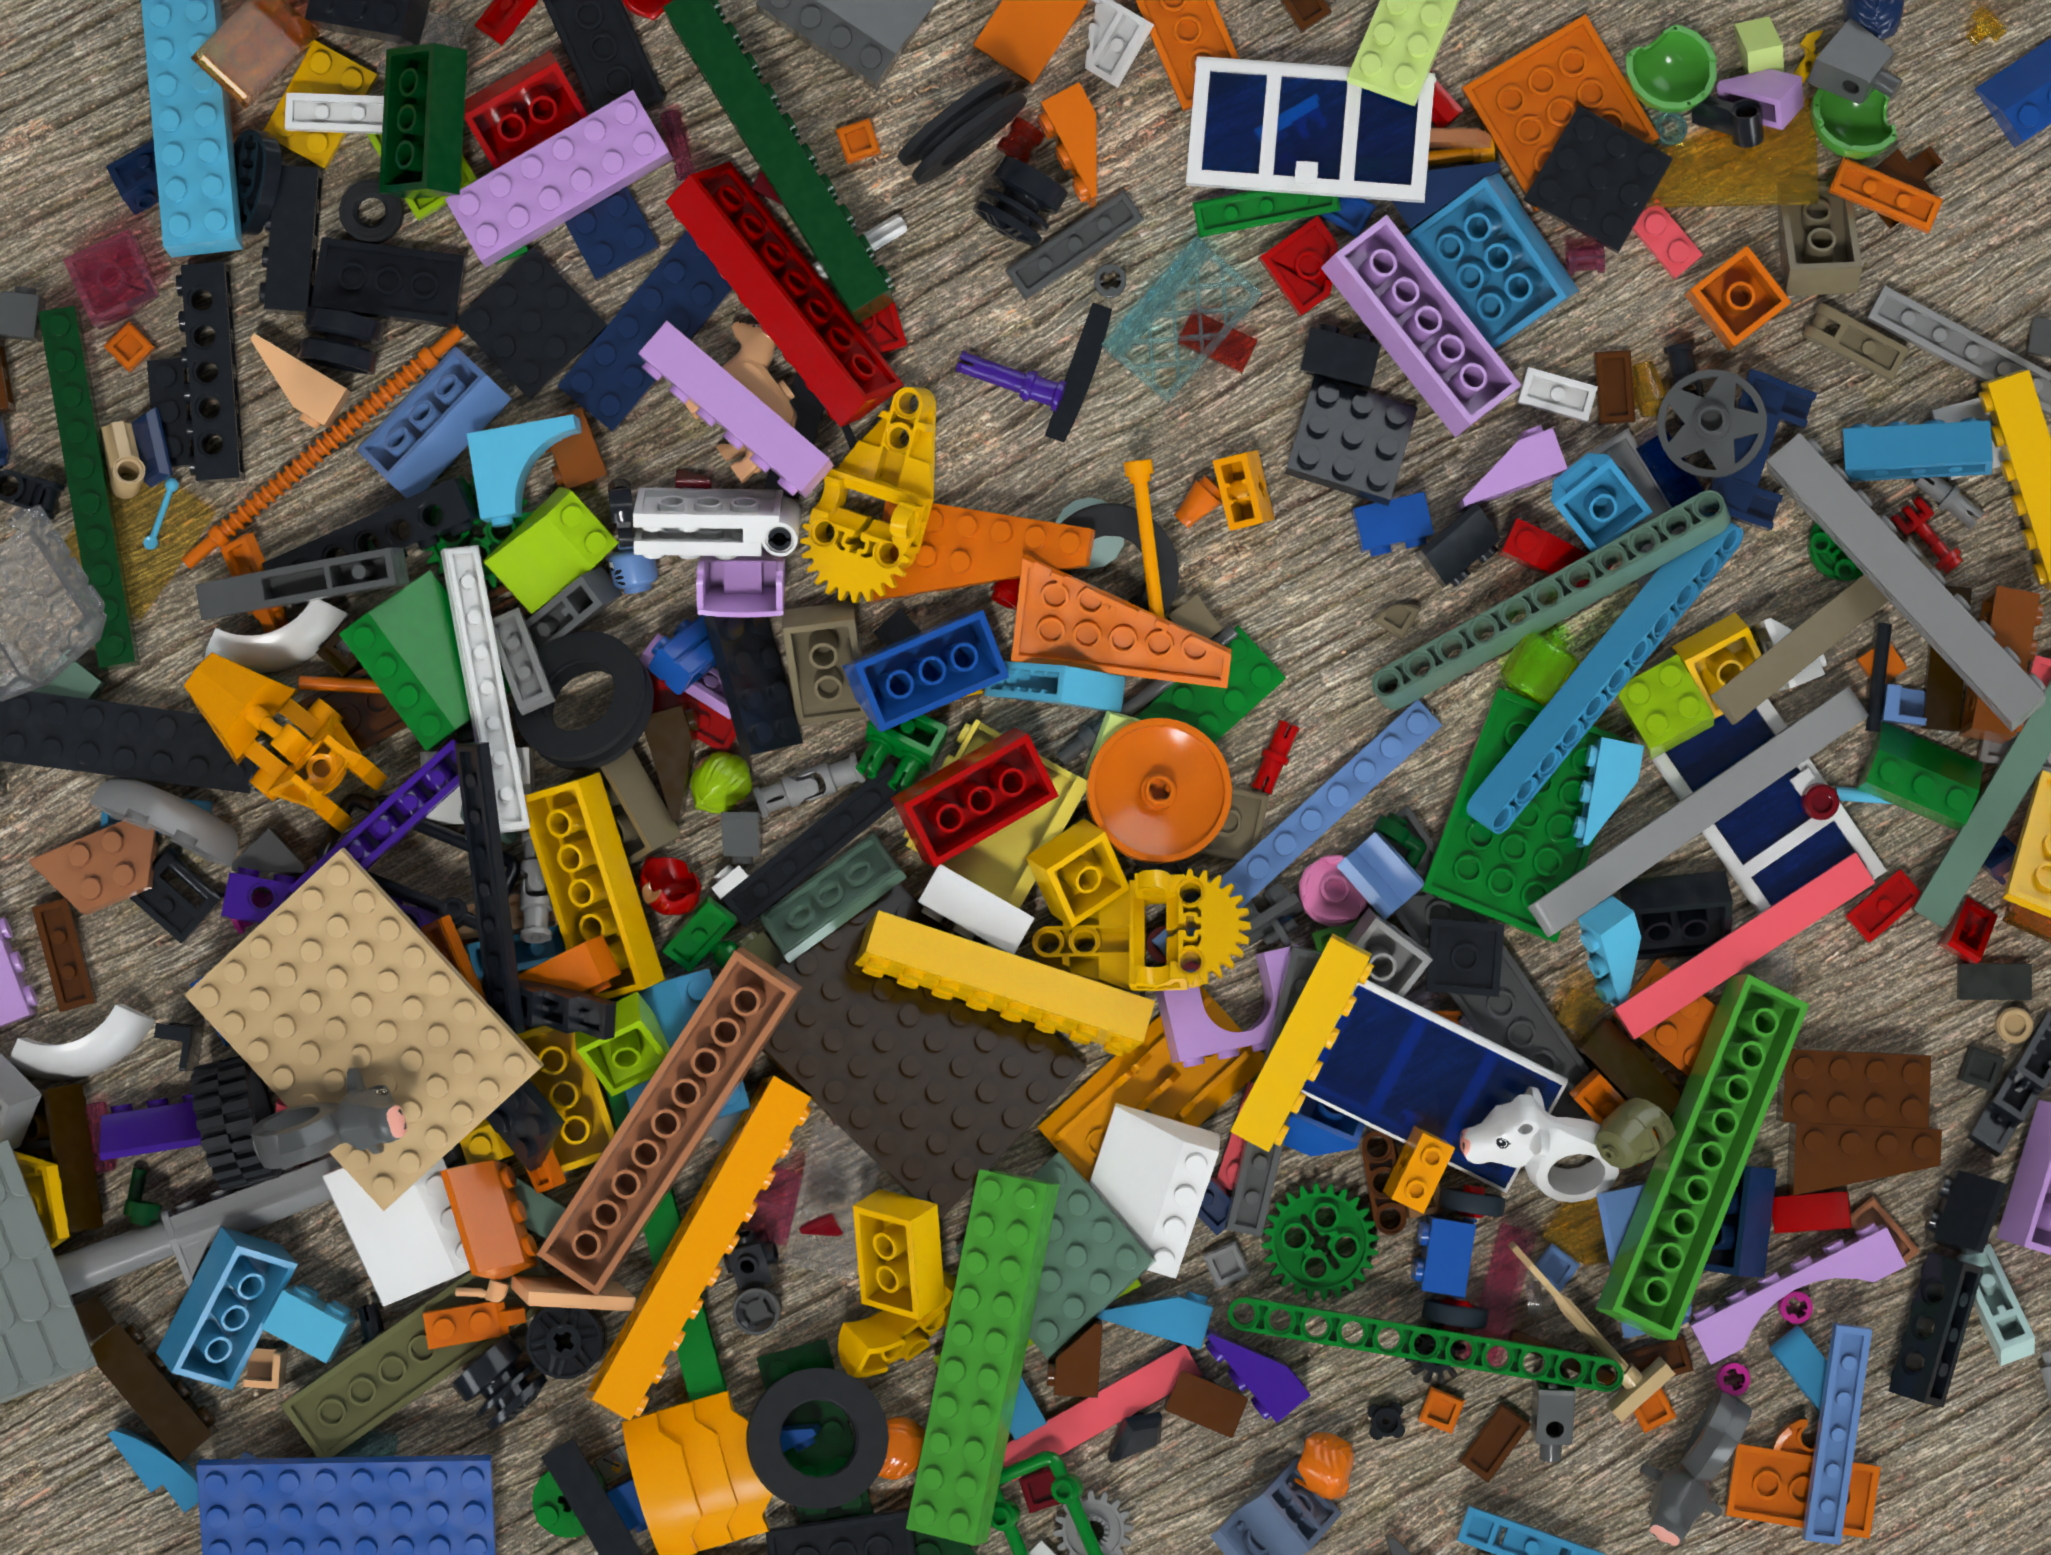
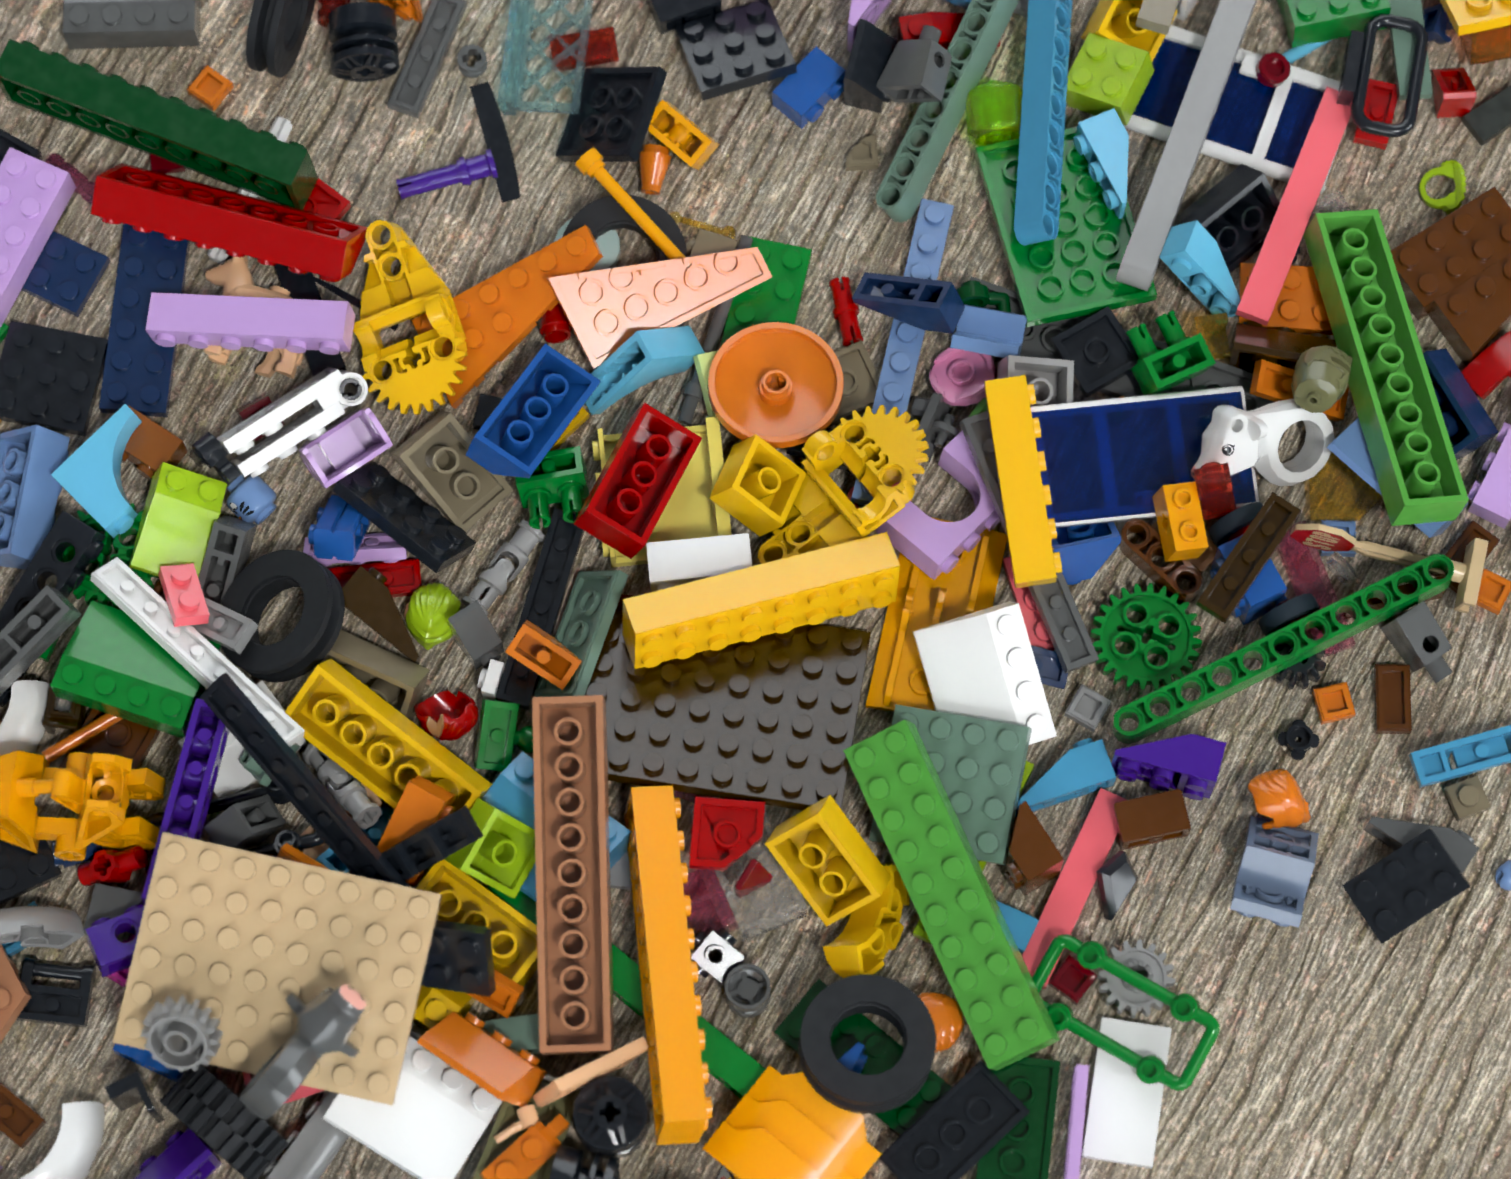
camera: 35 degrees left, 15 degrees down
(240, 1038) = (181, 1034): none -> light grey gear
(294, 821) = (112, 866): none -> red axle
(428, 868) = (245, 823): none -> dark grey brick
(511, 624) = (184, 595): none -> coral plate
(784, 896) = (543, 654): none -> orange slope
(827, 1167) = (724, 831): none -> red plate
(1194, 430) = (612, 113): none -> black plate
(1224, 607) = (728, 231): none -> clear yellow hinge
(1332, 797) = (915, 301): none -> dark blue slope
(1449, 1250) = (1248, 557): none -> dark brown plate
(1466, 1167) = (1215, 490): none -> clear red slope
(1496, 583) = (917, 69): none -> dark grey torso
(1520, 1022) = (1173, 365): none -> green brick
(1891, 860) = (1357, 71): none -> black bar
(1910, 1007) = (1452, 170): none -> lime piece

